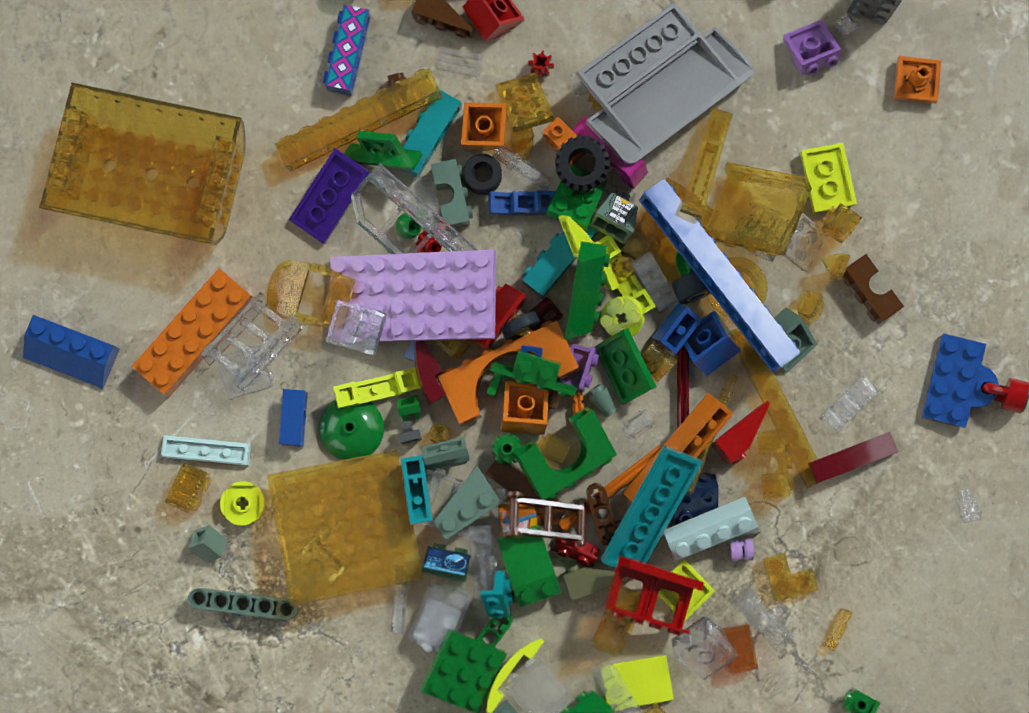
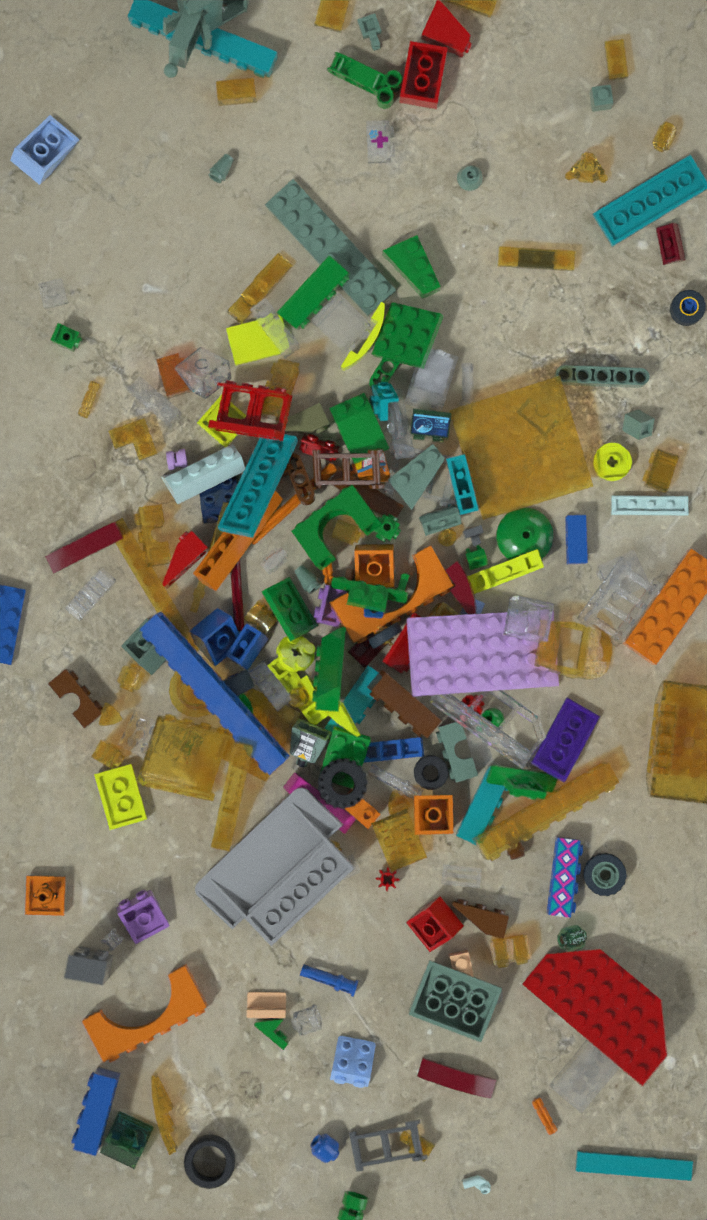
camera: 170 degrees right, 5 degrees up
(127, 681) = (687, 301): none -> black wheel
(302, 36) = (608, 886): none -> black wheel
(509, 252) = (403, 703): none -> reddish brown brick

